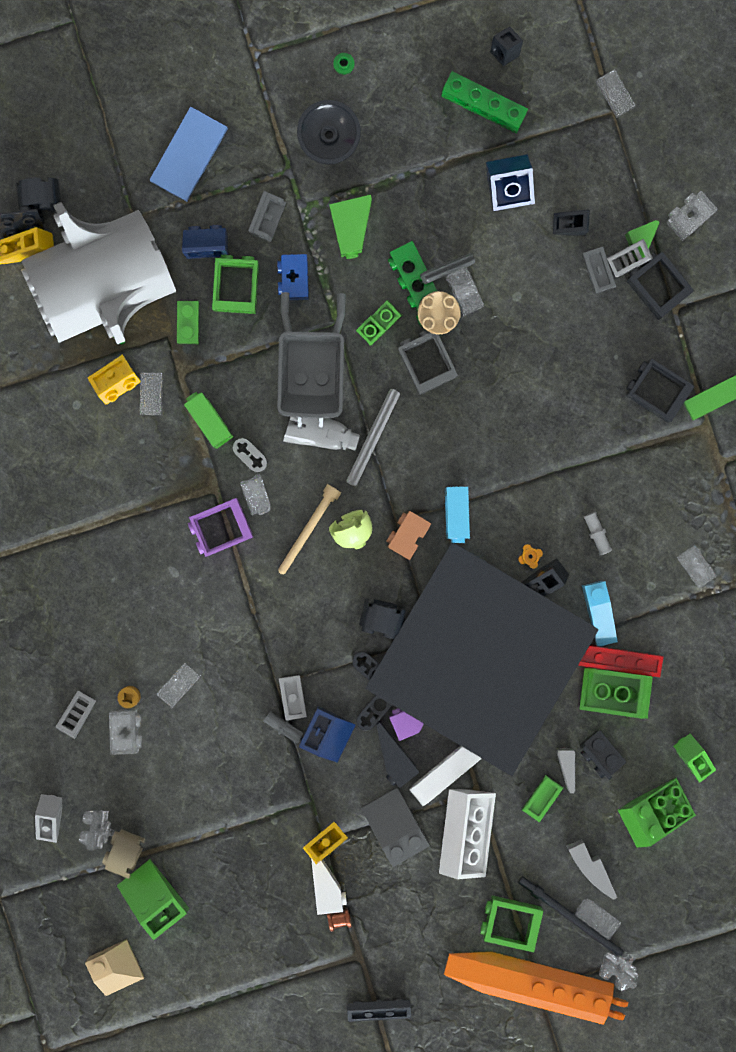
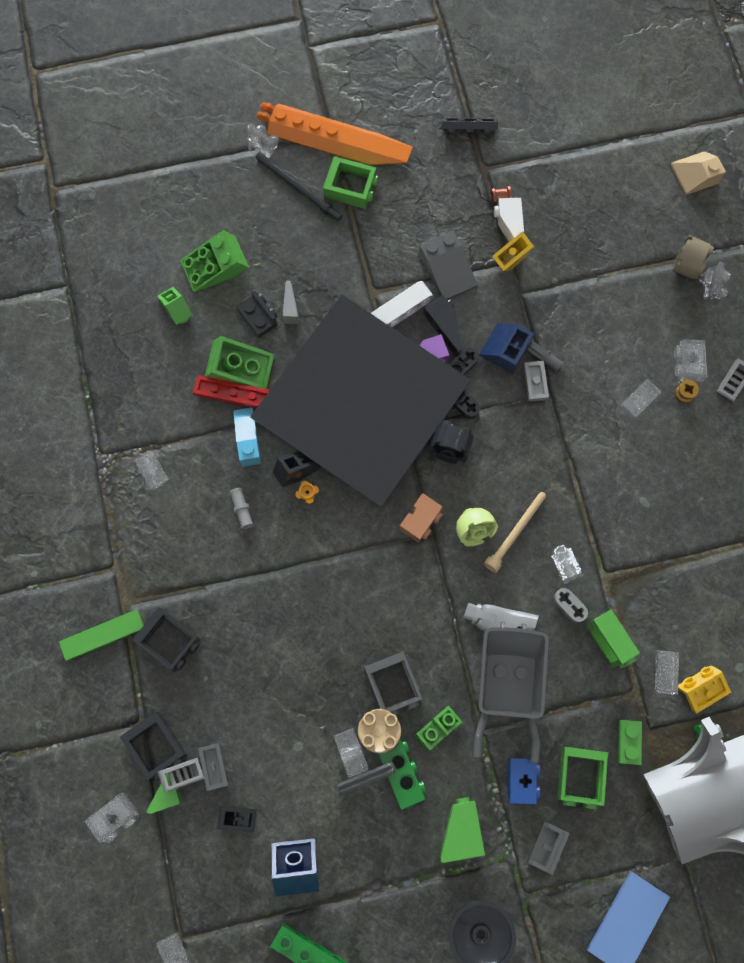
camera: 175 degrees left, 15 degrees down
(152, 899) = (664, 219): bright green slope -> none
(195, 527) = (581, 543): medium lavender window -> none
(205, 242) = (613, 824): dark blue slope -> none
(373, 437) = (450, 615): light grey axle -> none
(457, 514) = (374, 532): medium azure window -> none
(467, 833) = (384, 256): white slope -> none
(542, 798) = (314, 282): bright green tile -> none
(591, 868) = (277, 221): light grey slope -> none
(597, 918) = (275, 183): clear plate -> none

